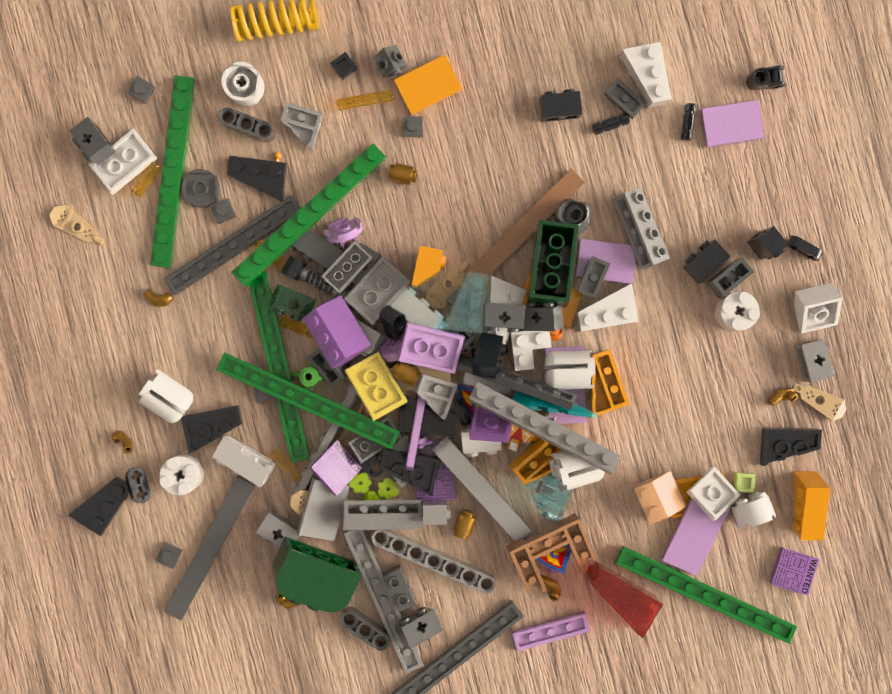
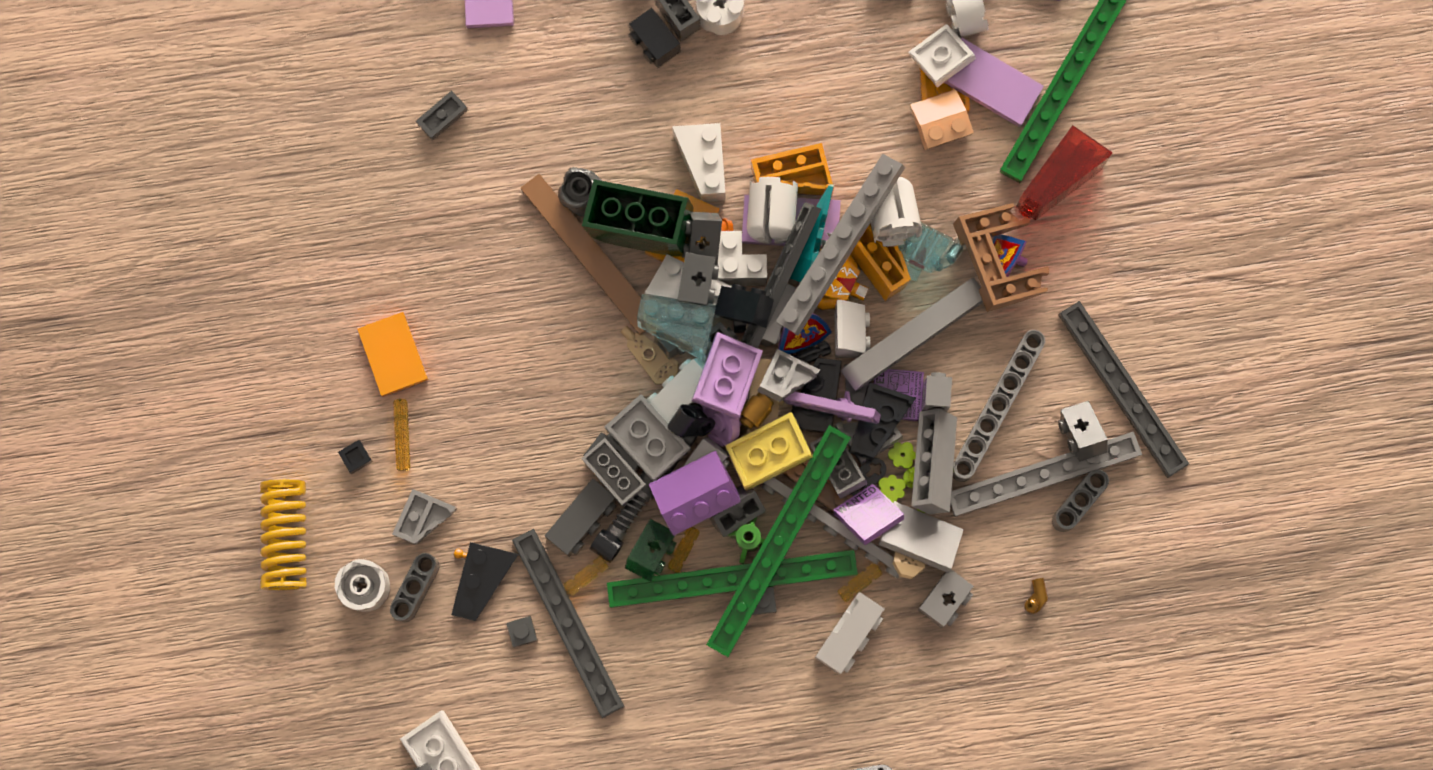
camera: 85 degrees left, 10 degrees down
(141, 89) = (350, 723): dark grey plate -> none
(146, 179) = (468, 728): clear yellow axle -> none
(158, 300) = (629, 727): pearl gold arm -> none
(165, 397) = (767, 736): white cylinder -> none
(169, 555) = (966, 749): dark grey plate -> none
(171, 479) = (865, 732): white brick -> none
(172, 171) = (463, 693): green plate -> none
(201, 188) = (489, 658): dark grey tile -> none
(209, 425) = (799, 676): black wing -> none
(209, 548) = (961, 694): dark grey tile -> none
(308, 215) = (542, 517): green plate -> none
(314, 576) = (1006, 554): dark green brick -> none
(343, 231) = (566, 475): lavender tile -> none
(390, 62) = (359, 396): dark grey brick -> none
(399, 588) = (1030, 451): dark grey brick -> none
(402, 174) = (502, 396): pearl gold brick -> none
(413, 126) = (443, 378): dark grey plate -> none
(428, 265) = (621, 371): light orange slope -> none
(464, 524) = (956, 362): pearl gold brick -> none
(489, 427) = (833, 312): medium lavender tile -> none
(550, 631) = (1100, 270): lavender tile -> none
(552, 587) = (1049, 259): pearl gold arm -> none
(560, 105) = (441, 192): black brick -> none
(593, 277) = (659, 173): dark grey plate -> none
(611, 124) = (470, 135): black axle -> none
(619, 256) = (641, 155): lavender tile -> none
(641, 228) = (605, 110): light grey brick -> none
(649, 73) = (413, 83): white wedge -> none
(688, 122) = (480, 43): black axle -> none
(744, 482) = (932, 18): yellowish green tile -> none

